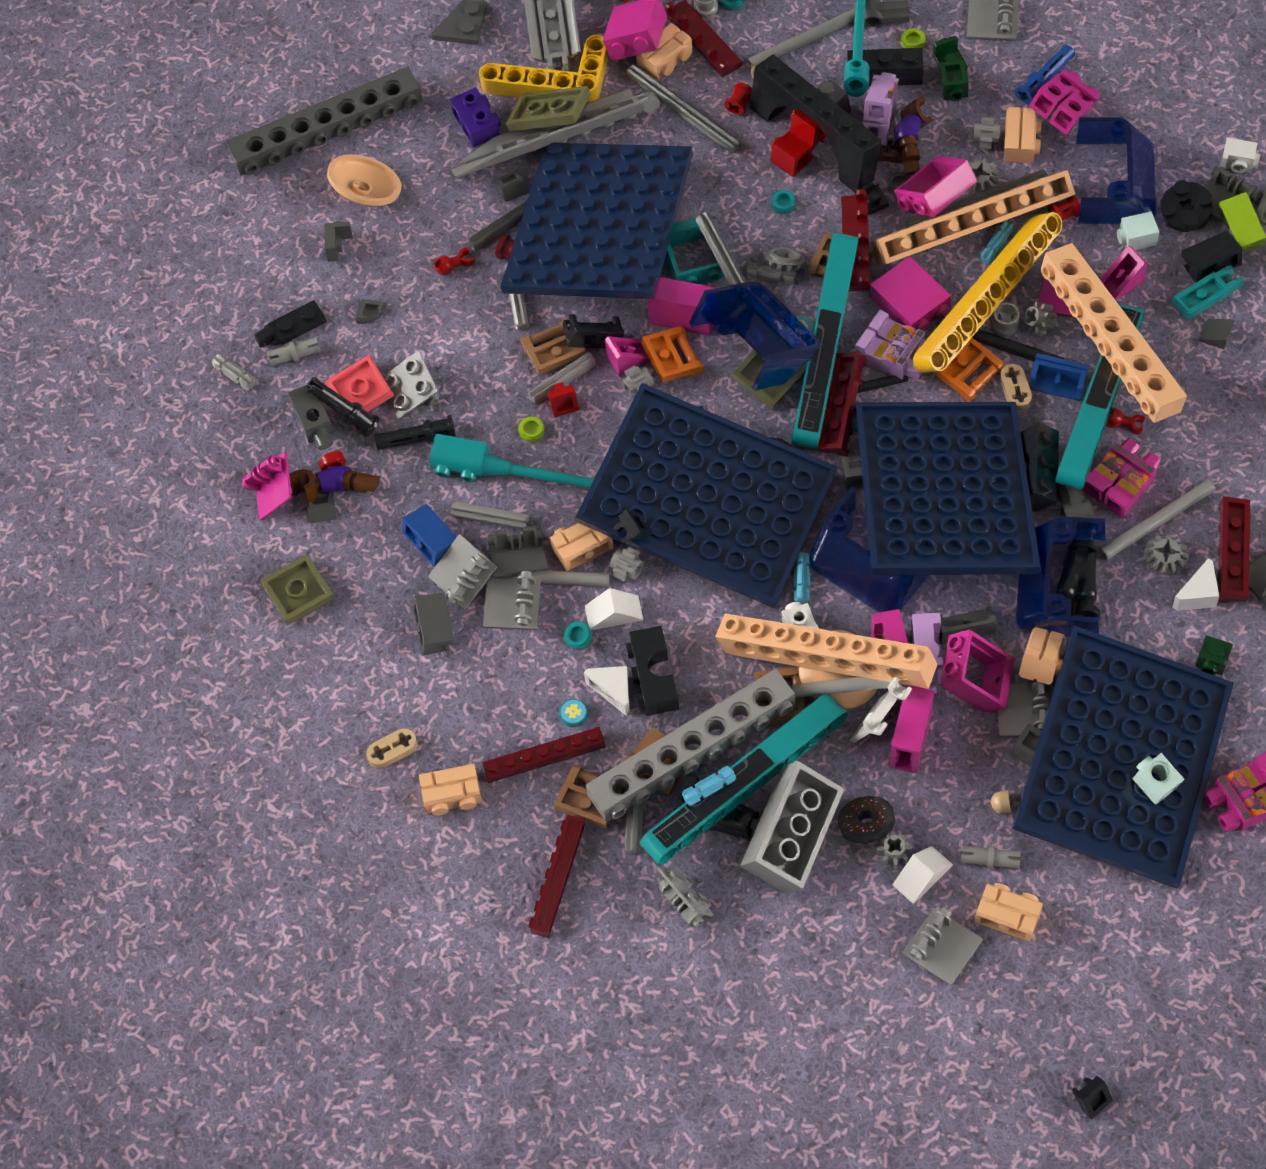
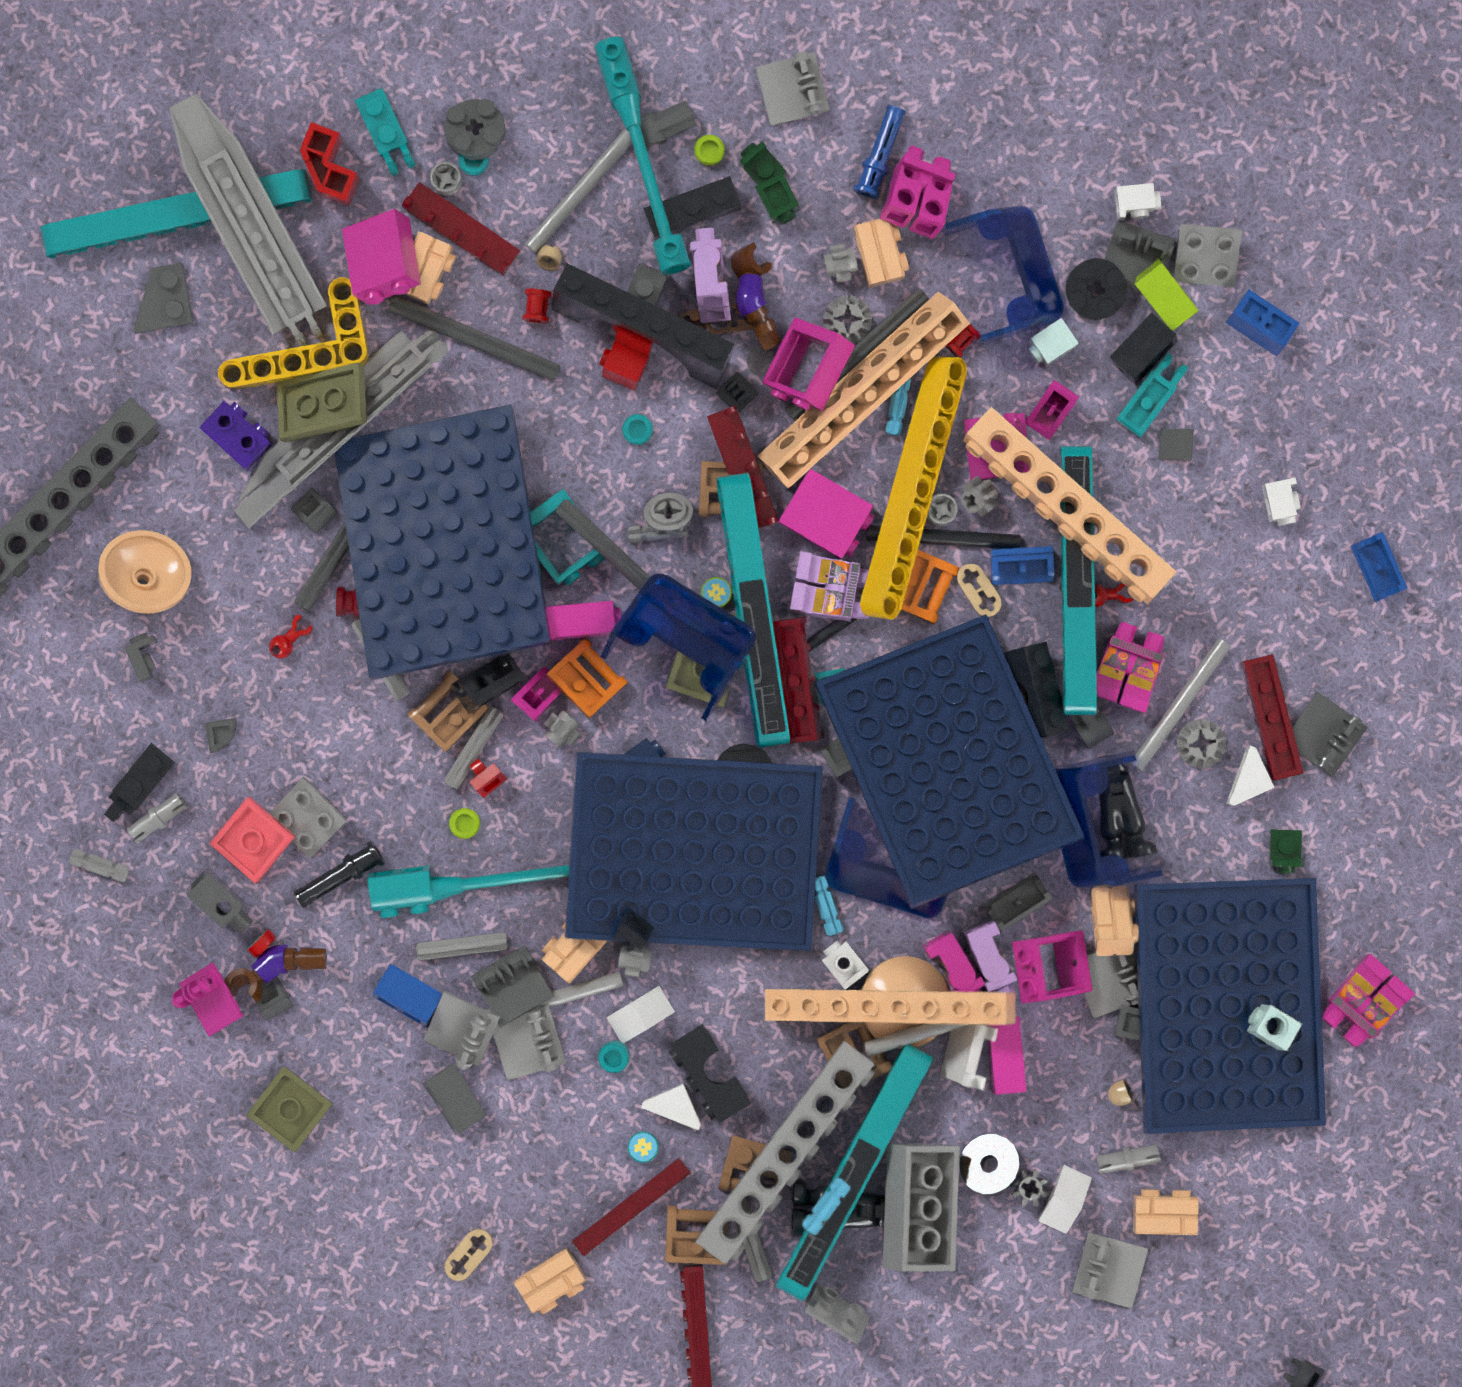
camera: 25 degrees left, 25 degrees up
(351, 412) = (261, 882): black pin -> none

